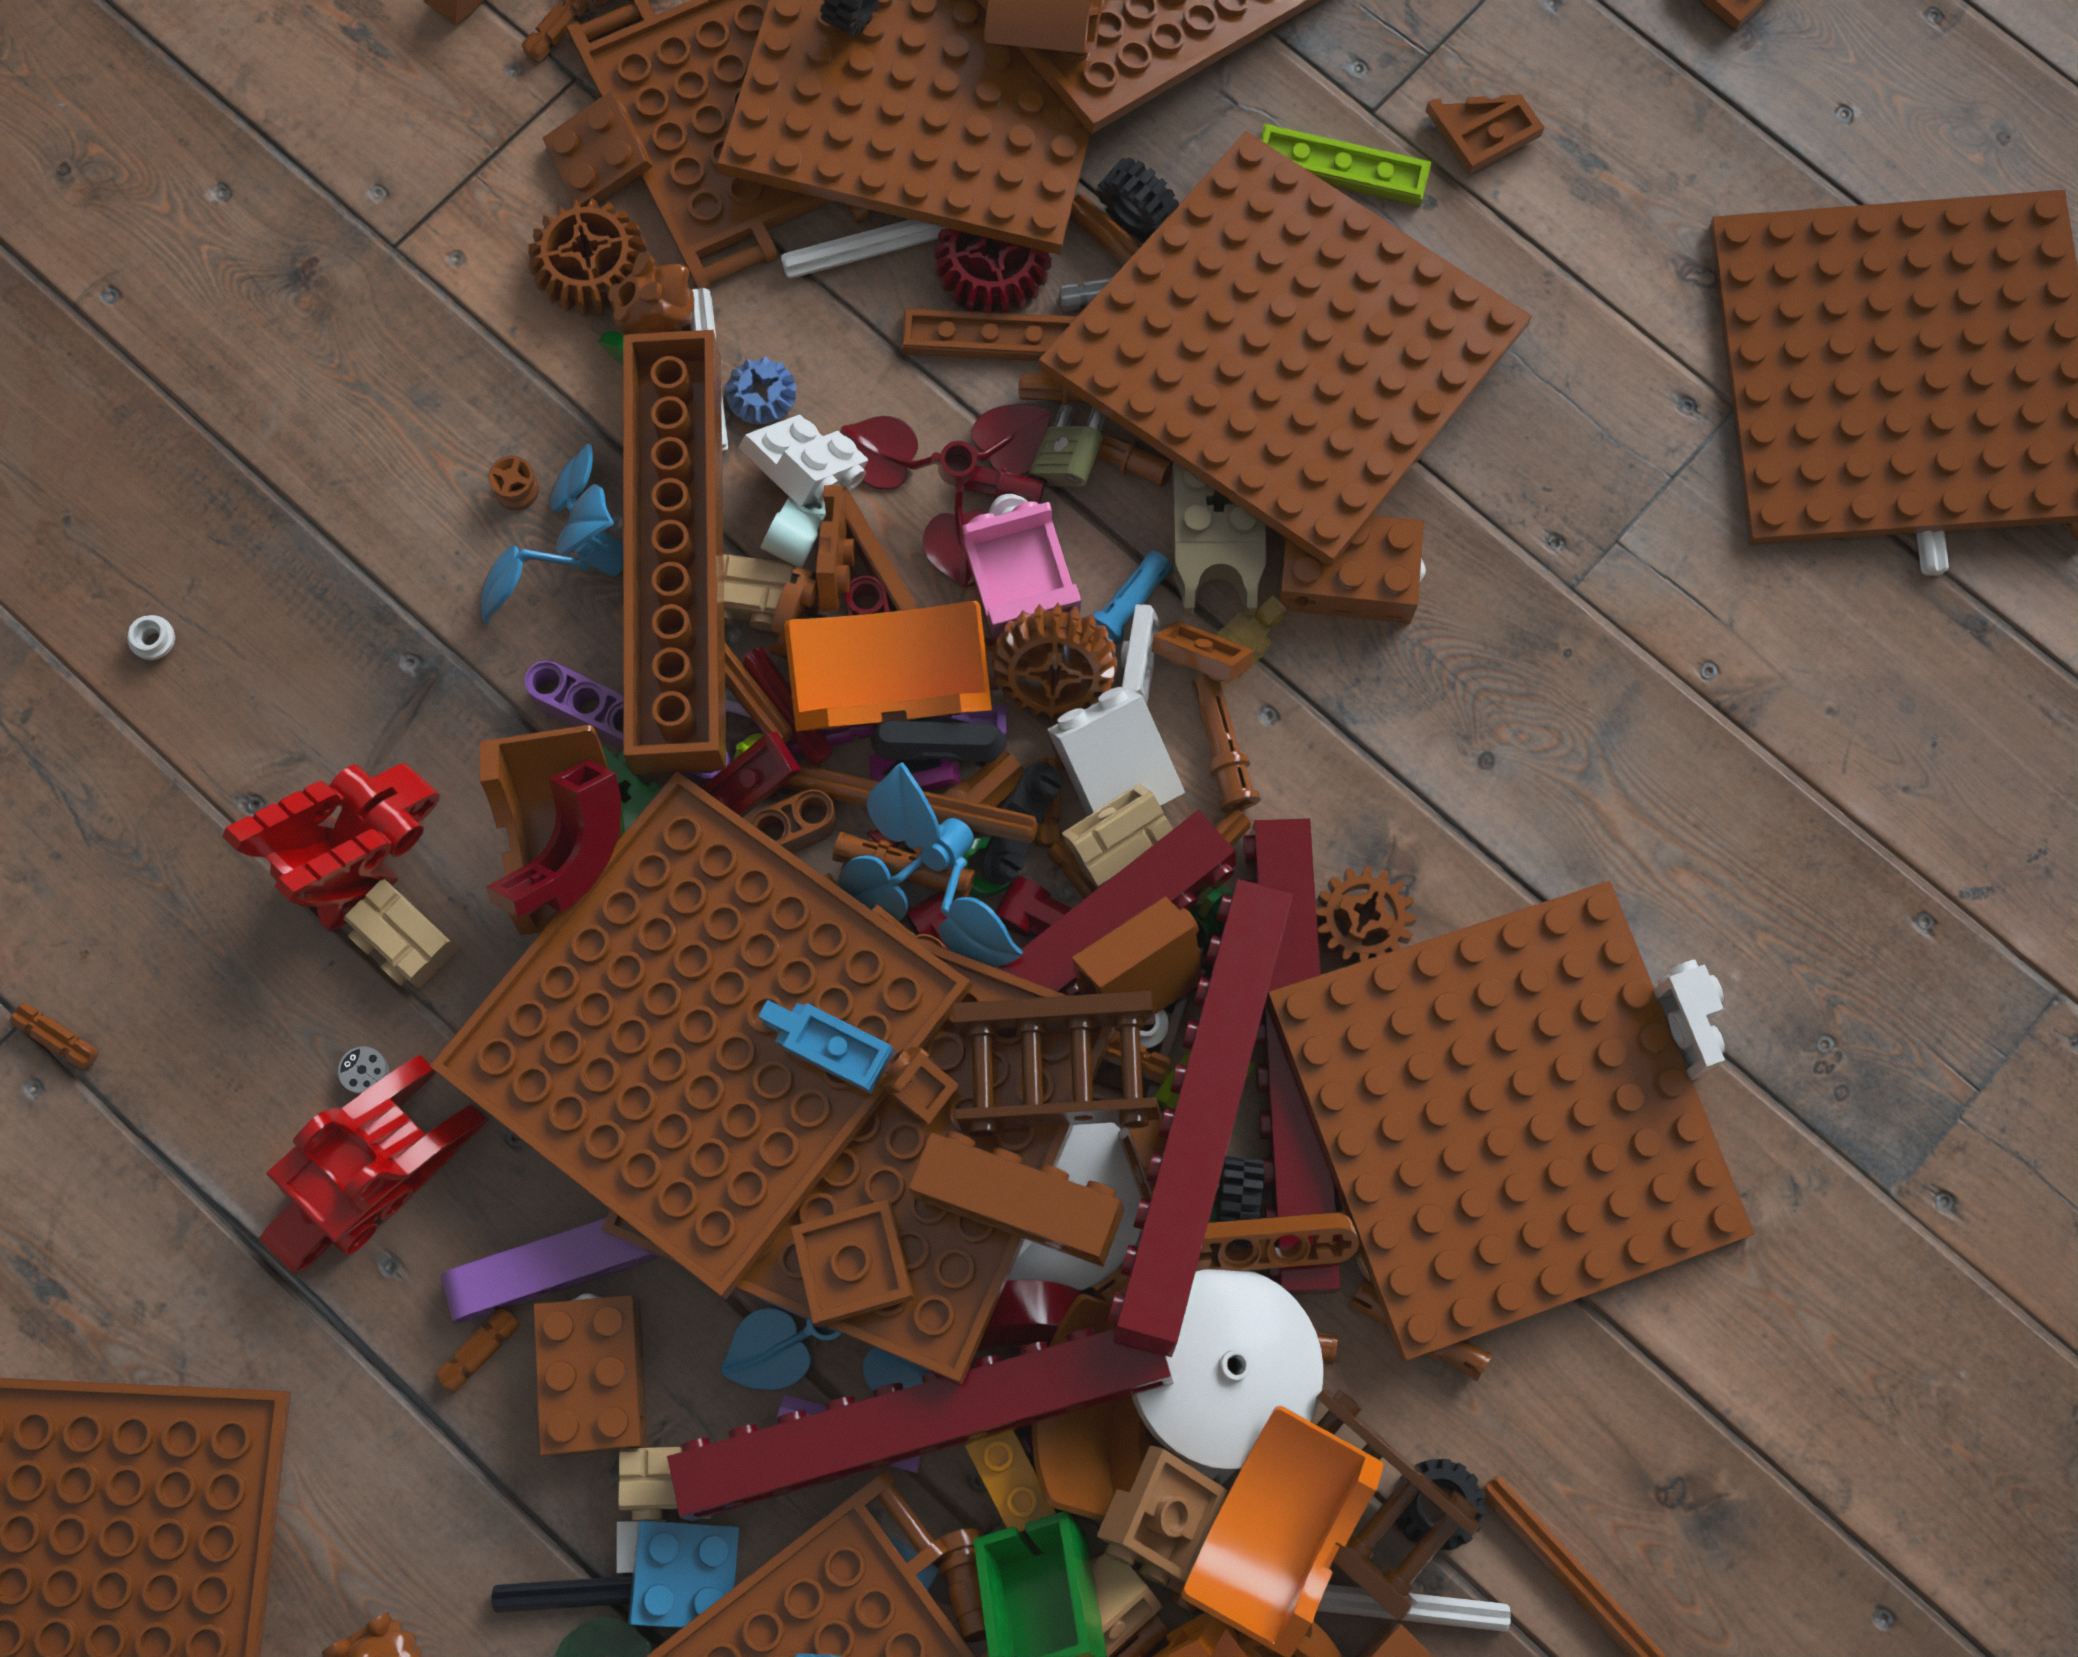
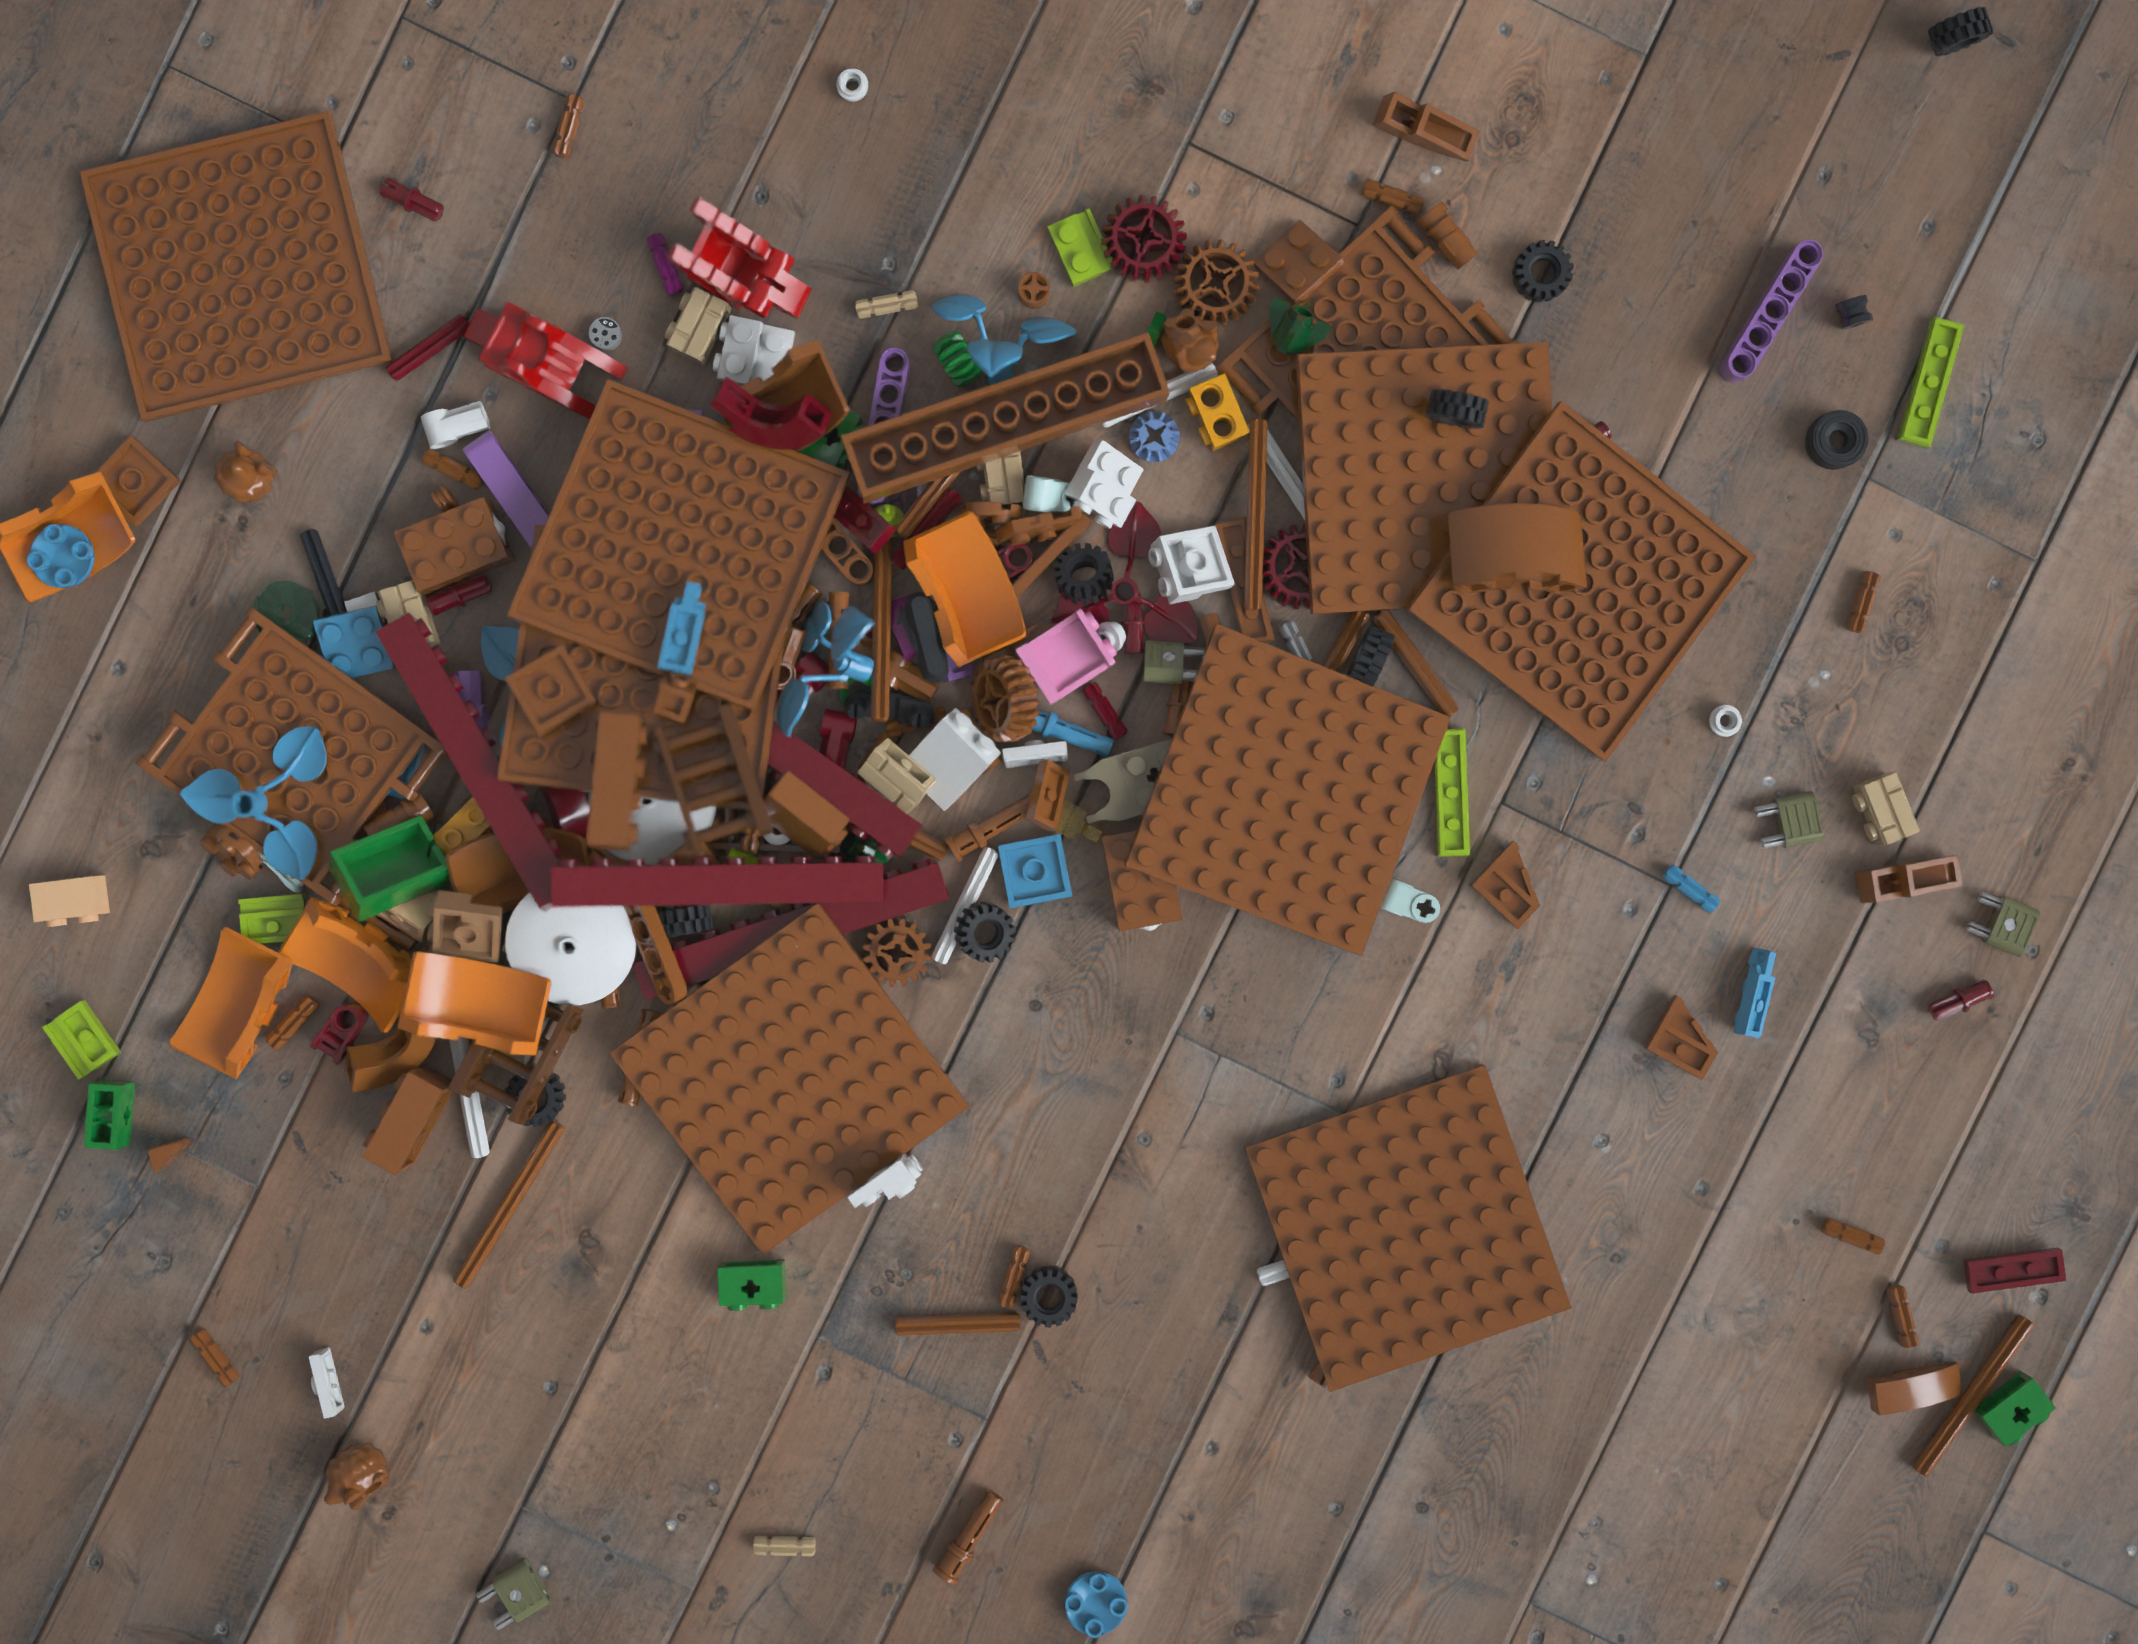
camera: 75 degrees right, 15 degrees up
(69, 1290) = (412, 199): none -> dark red axle
(289, 1333) = (427, 347): none -> dark red axle
(297, 959) = (664, 266): none -> magenta axle
(413, 1339) = (446, 426): none -> white piece
(456, 873) = (750, 349): none -> white plate
(462, 678) = (886, 304): none -> tan axle
(479, 411) = (1080, 247): none -> lime plate
(493, 304) = (1157, 243): none -> dark red gear
(517, 1372) = (444, 498): none -> dark orange bush
(570, 599) = (955, 359): none -> green gear
(663, 1394) = (459, 594): none -> dark red axle
(681, 166) = (1294, 328): none -> dark green brick
(757, 289) = (1226, 411): none -> light orange brick
(897, 511) = (1083, 589): none -> black tyre
(907, 287) = (1255, 514): none -> dark orange axle
(946, 387) = (1190, 564): none -> white plate
(1107, 553) = (1104, 711): none -> dark red axle
(1170, 154) = (1417, 664): none -> dark orange axle
(1300, 702) = (1035, 871): none -> dark azure plate
(1322, 810) = (968, 896): none -> white axle
(1381, 772) = (997, 945): none -> black tyre
(1472, 247) = (1403, 900): none -> light aqua piece
(1777, 1279) = (766, 1273): none -> green brick
(1863, 893) = (1013, 1276): none -> dark orange axle
(1915, 990) = (957, 1324): none -> dark orange axle
(1924, 837) = (1053, 1315): none -> black tyre

